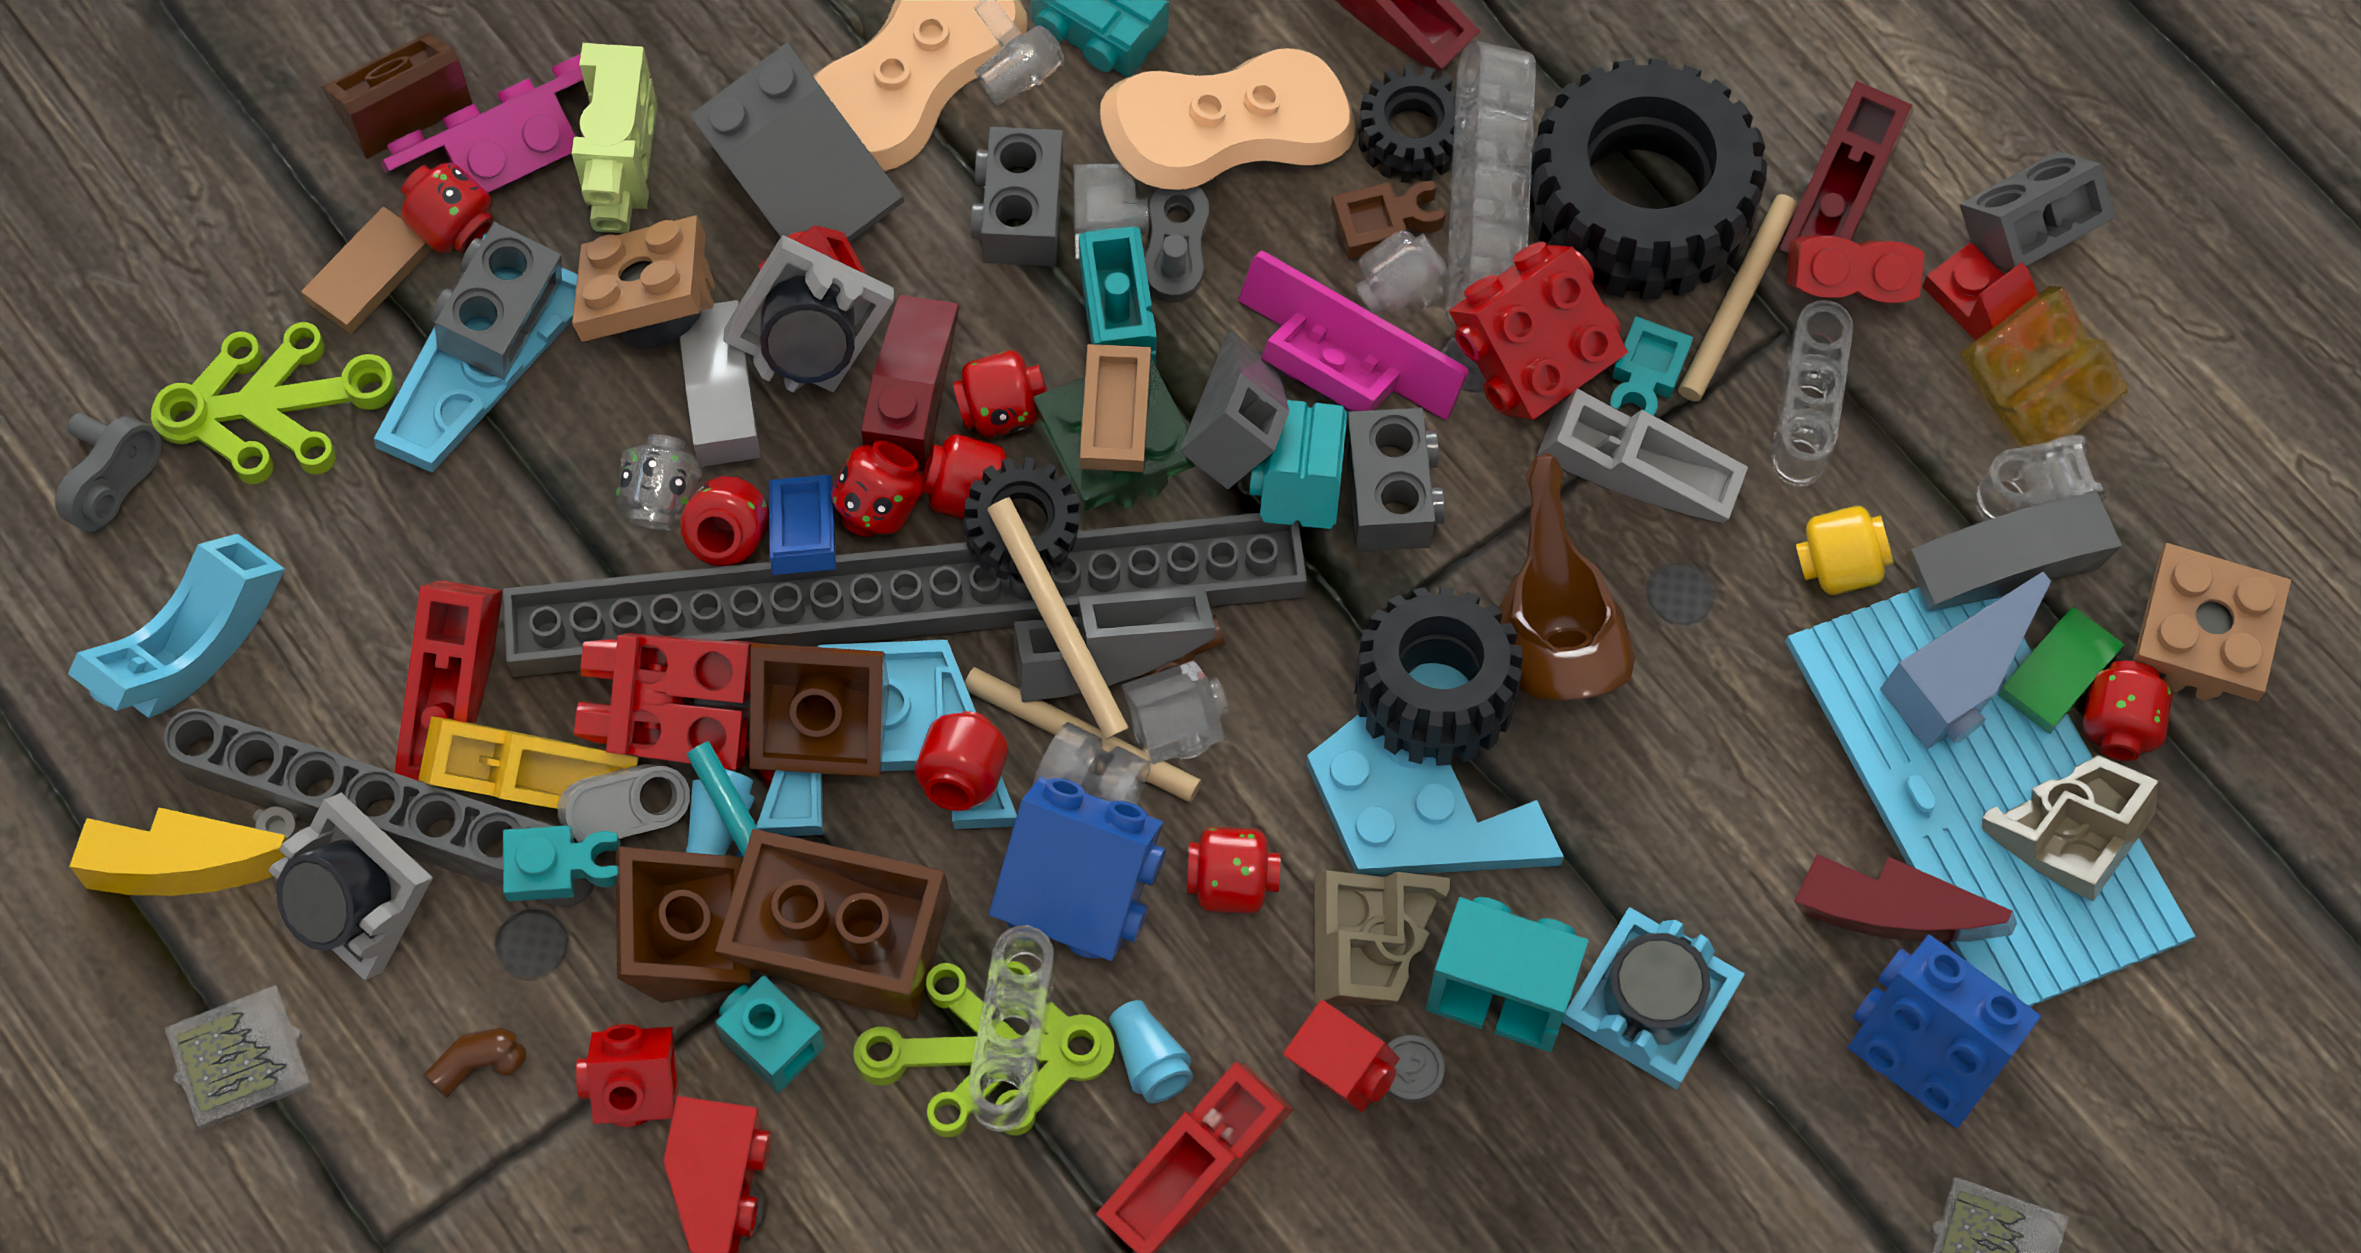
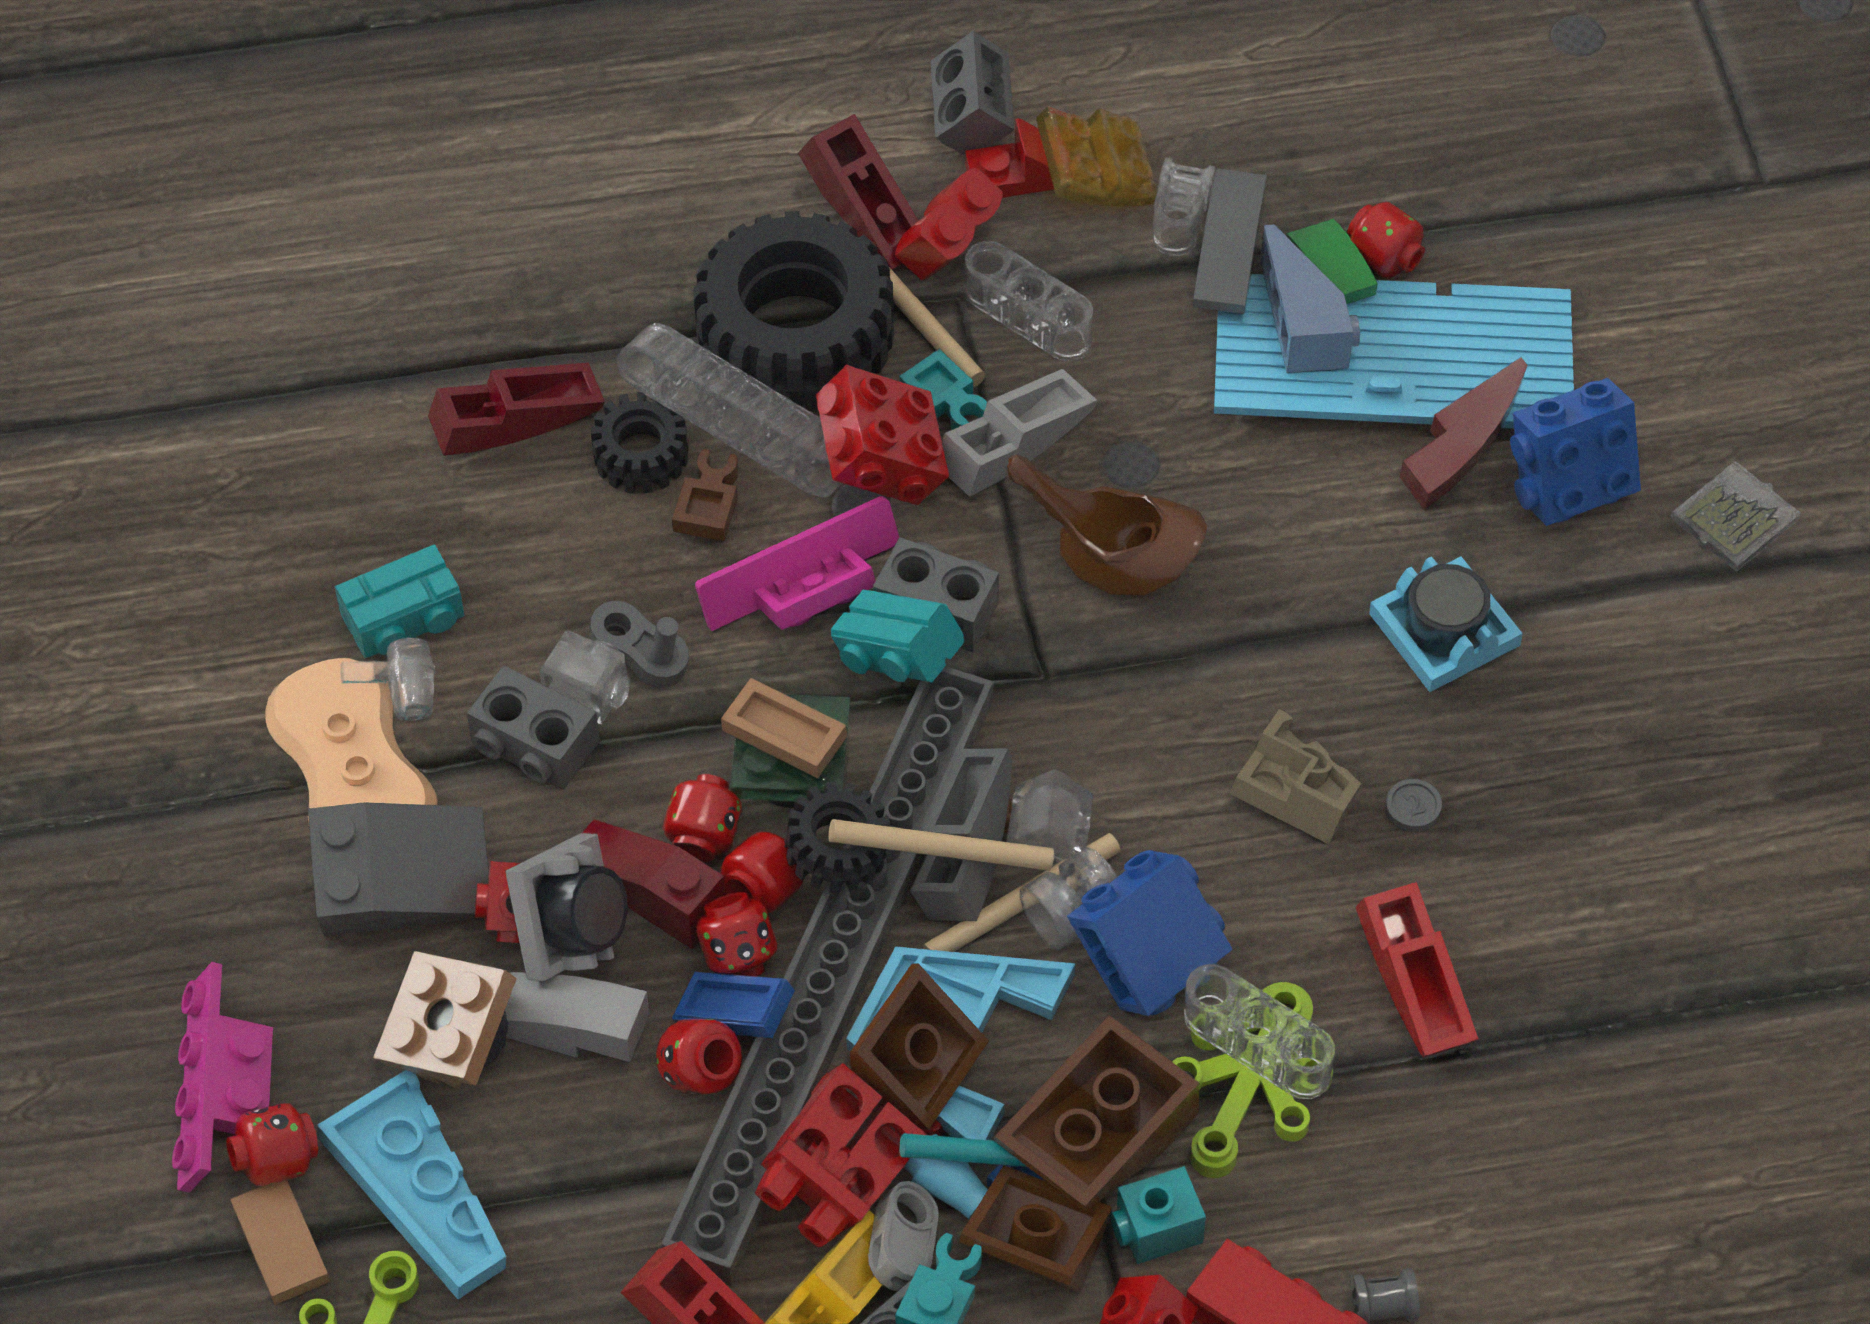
camera: 60 degrees left, 10 degrees down
(399, 93) = (120, 1141): reddish brown slope -> none
(509, 304) = (408, 1126): dark grey brick -> none
(616, 134) = (294, 981): yellowish green hips -> none
(657, 482) = (630, 1094): clear head -> none
(961, 760) = (1016, 969): red head -> none
(1116, 288) = (673, 697): teal brick -> none
(1151, 1055) = (1314, 963): medium azure cone -> none
(1191, 127) = (559, 556): light nougat plate -> none
(1232, 870) = (1201, 836): red head -> none
(1237, 414) = (844, 652): dark grey slope -> none
(1343, 1057) = (1393, 831): red brick -> none
(1402, 275) = (769, 505): clear head -> none
(1415, 814) = (1189, 711): medium azure wing -> none
(1444, 632) = (1137, 657): black tyre -> none
(1508, 957) = (1394, 679): teal piece -> none
(1845, 550) = (1167, 340): yellow head -> none
(2079, 824) = (1457, 307): dark tan slope -> none
(2211, 624) = (1354, 155): medium nougat piece -> none

